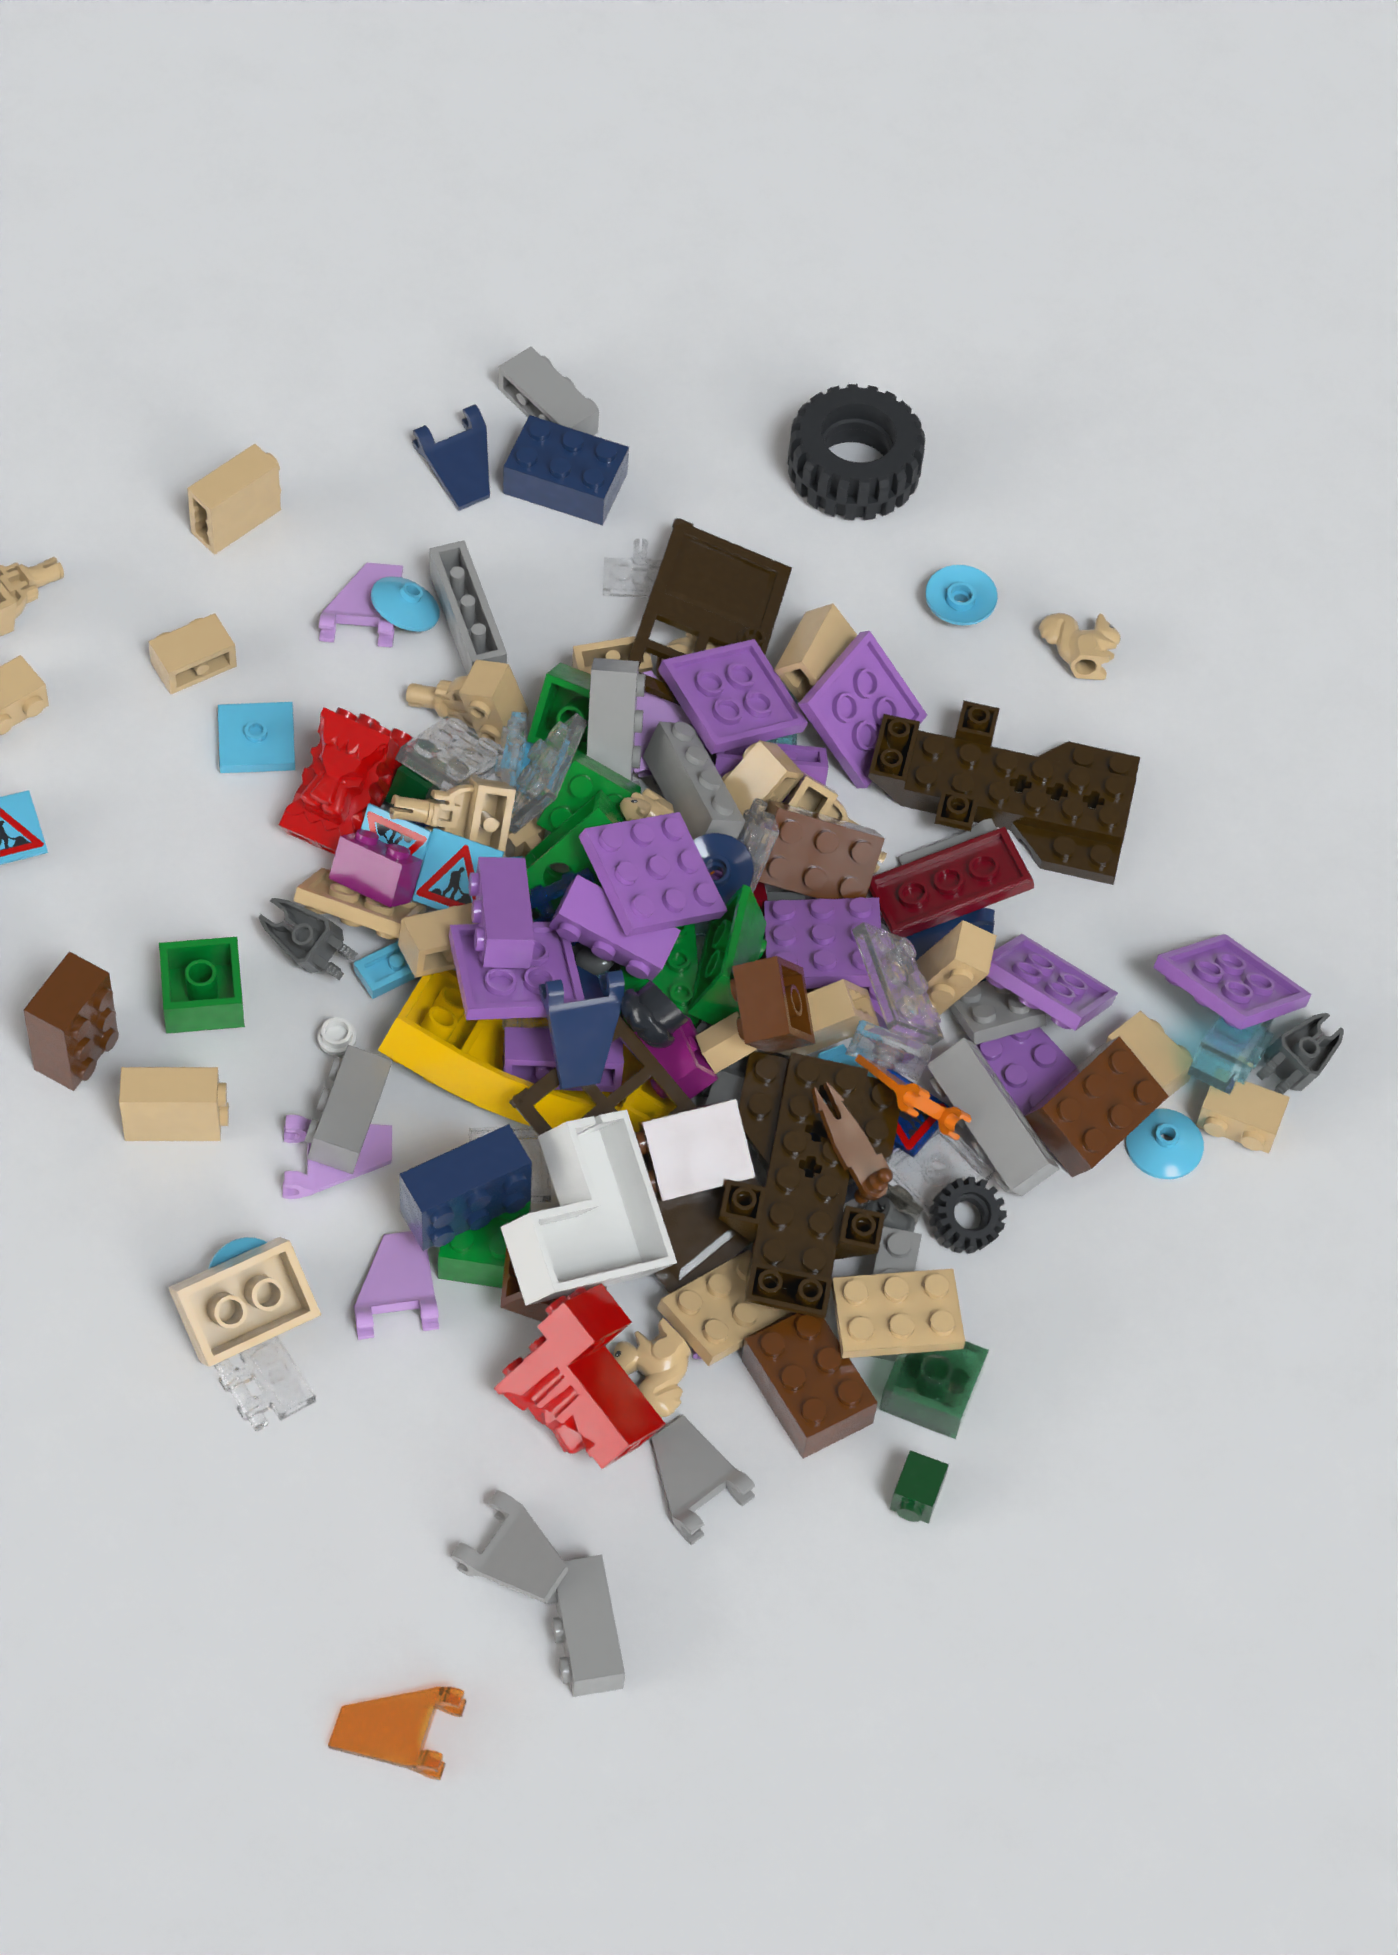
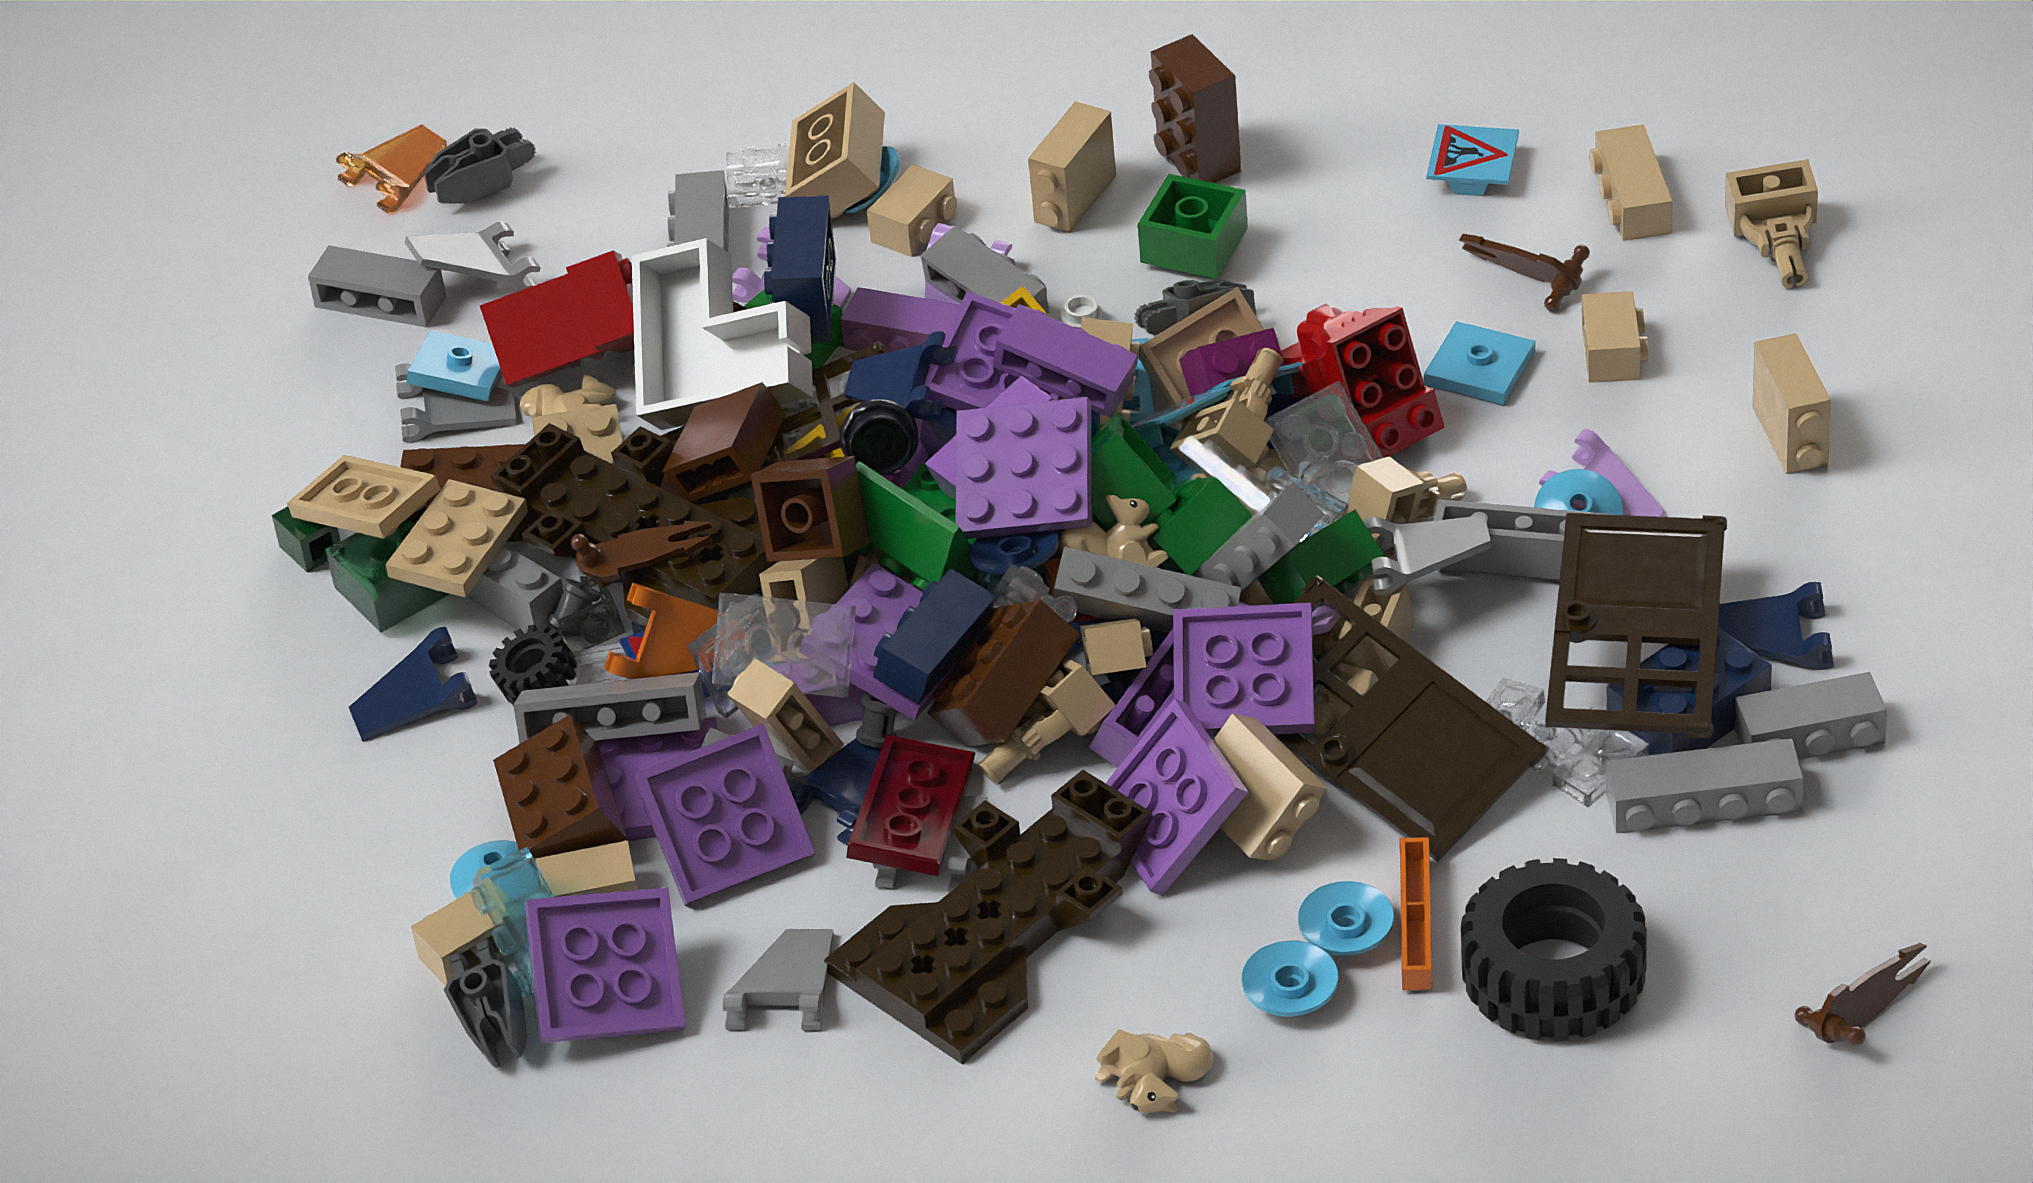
camera: 130 degrees right, 15 degrees down
(132, 712) = (1540, 267): none -> reddish brown piece
(271, 1217) = (911, 210): none -> tan brick
(372, 1388) = (699, 209): none -> light grey brick
(385, 1629) = (477, 165): none -> dark grey hinge
(423, 1124) = (892, 319): none -> medium lavender brick
(512, 504) = (1638, 586): none -> dark brown door
(536, 640) = (1423, 547): none -> light grey flag
(646, 509) = (1584, 773): none -> clear plate
(652, 440) = (1704, 785): none -> light grey brick
(657, 1484) = (455, 366): none -> medium azure plate
(813, 303) = (1854, 1005): none -> reddish brown piece
(824, 893) = (932, 635): none -> dark blue brick
(857, 552) = (1415, 914): none -> orange piece
(890, 575) = (1346, 918): none -> medium azure dish
(895, 1413) = (364, 496): none -> tan plate
(1031, 1307) = (413, 689): none -> dark blue flag
(1141, 897) = (785, 975): none -> light grey flag

